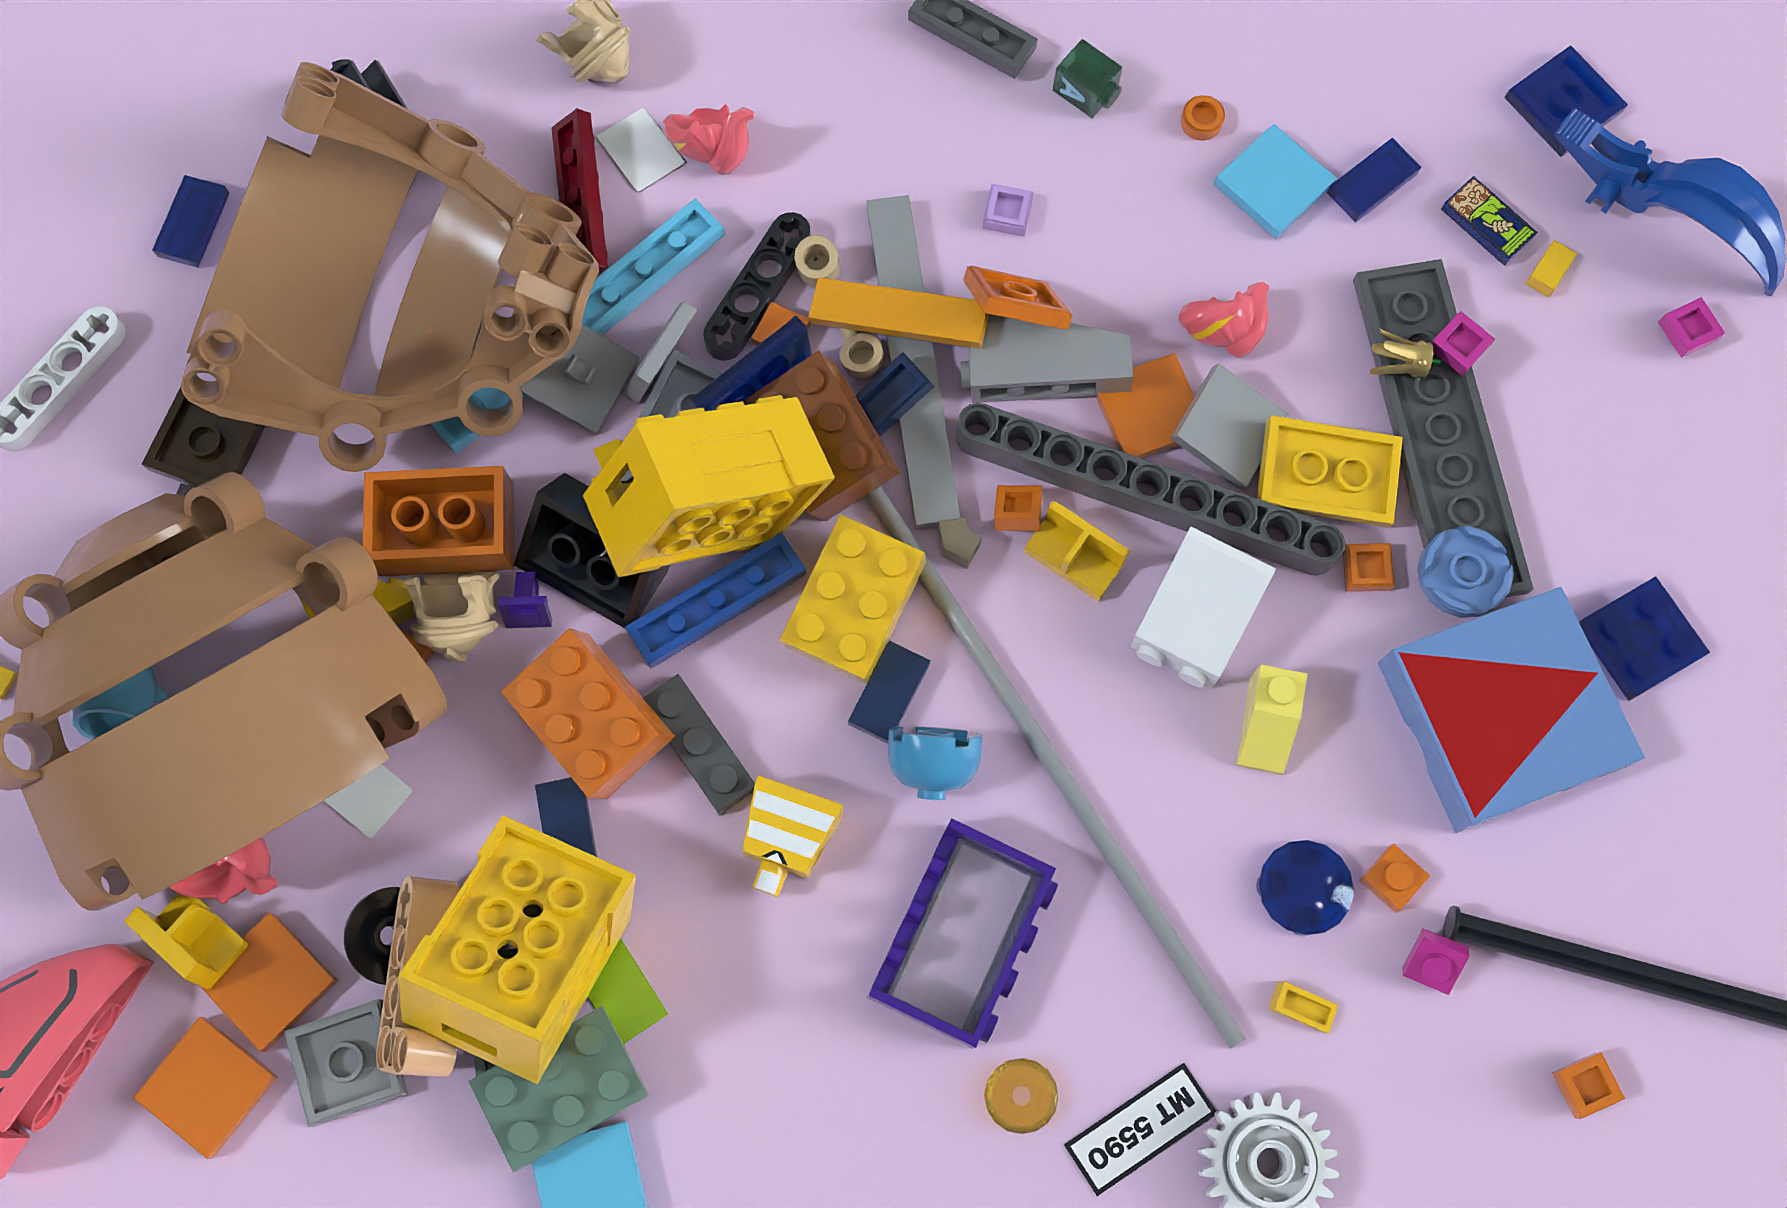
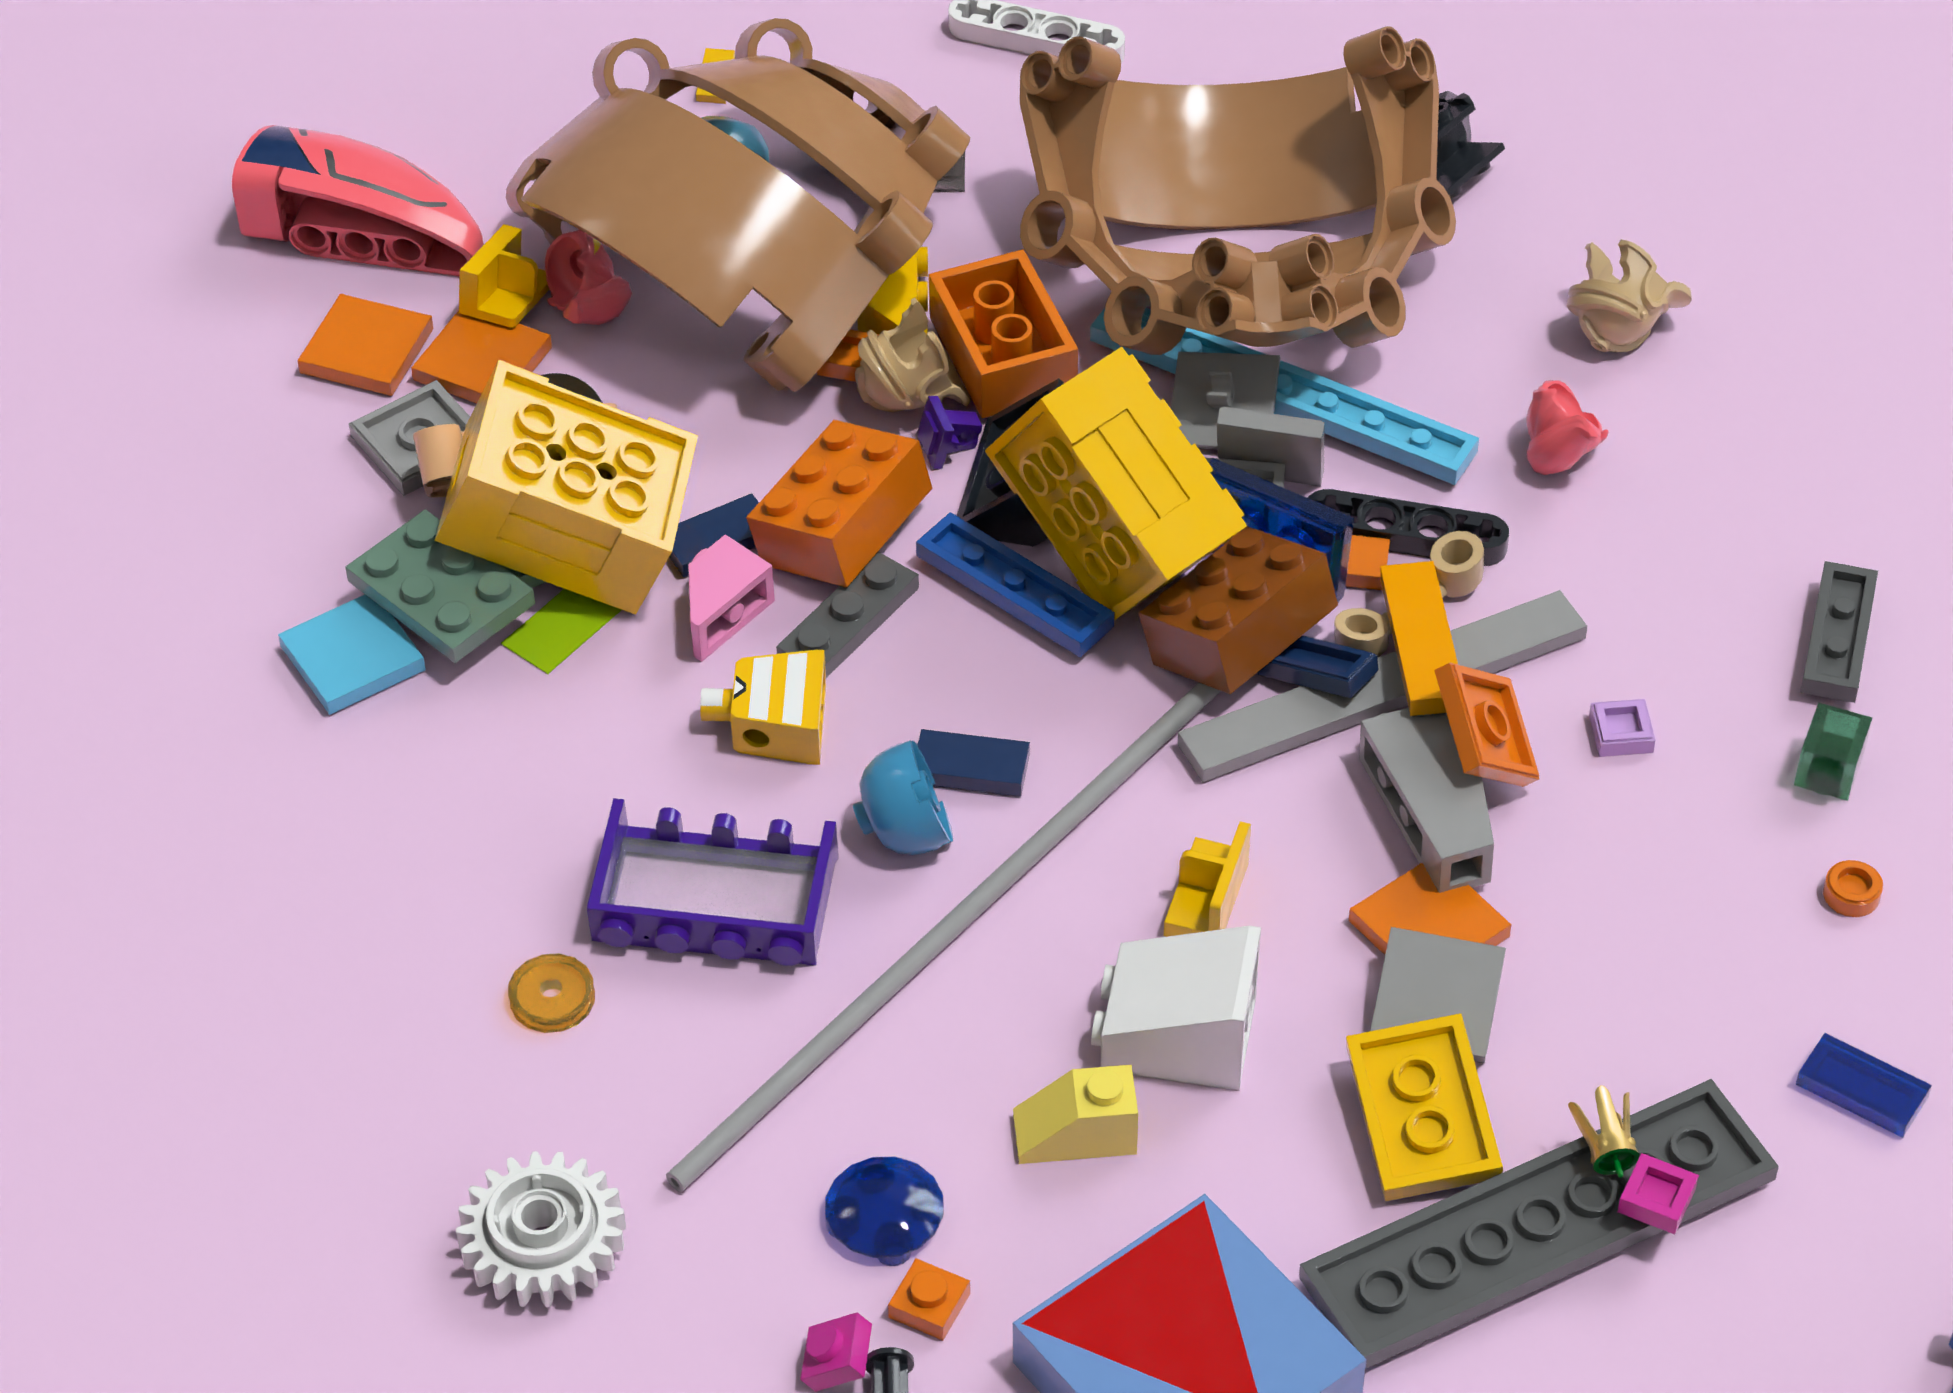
camera: 75 degrees right, 25 degrees down
(191, 221) = (1250, 66): clear blue tile -> none
(199, 444) = (998, 152): dark brown plate -> none
(370, 800) = (701, 374): white sticker -> none
(580, 180) = (1452, 343): dark red plate -> none
(640, 149) = (1513, 389): white sticker -> none
(644, 842) = (726, 593): none -> bright pink slope
(853, 599) = (1060, 685): yellow brick -> none
(957, 541) = (1176, 777): dark tan piece -> none
(1018, 508) = (1229, 807): orange plate -> none
(1140, 1129) = (547, 1114): white sticker -> none
(1169, 483) = (1317, 941): dark grey beam -> none
(1229, 324) = (1575, 961): coral hair -> none
(1274, 181) = (1803, 979): medium azure tile -> none
(1303, 1007) = (739, 1239): yellow piece -> none
(1368, 567) = (1322, 1190): orange tile -> none
(1465, 572) = (1350, 1268): medium blue tile -> none
(1489, 220) = (1872, 1224): tile -> none
(1551, 268) = (1843, 1312): yellow piece -> none

